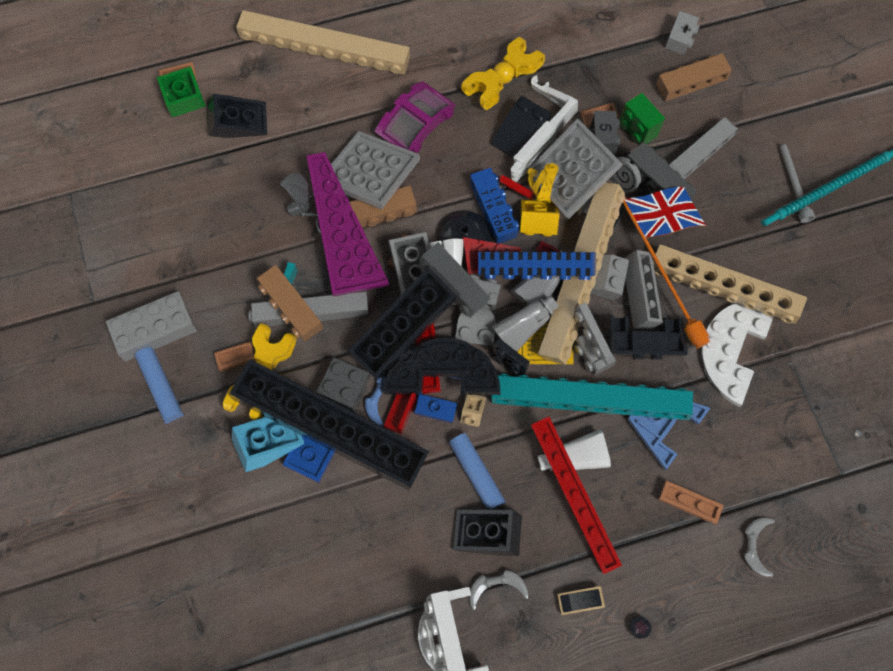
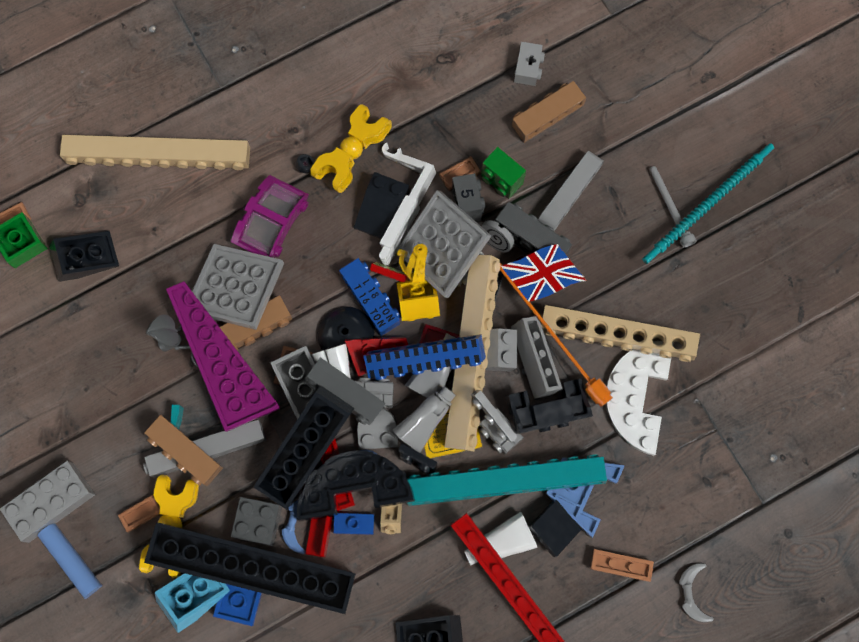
camera: 10 degrees left, 5 degrees up
(456, 78) = (304, 163): none -> black tile
(477, 472) = (407, 580): medium blue brick -> none
(631, 452) = (555, 528): none -> black tile

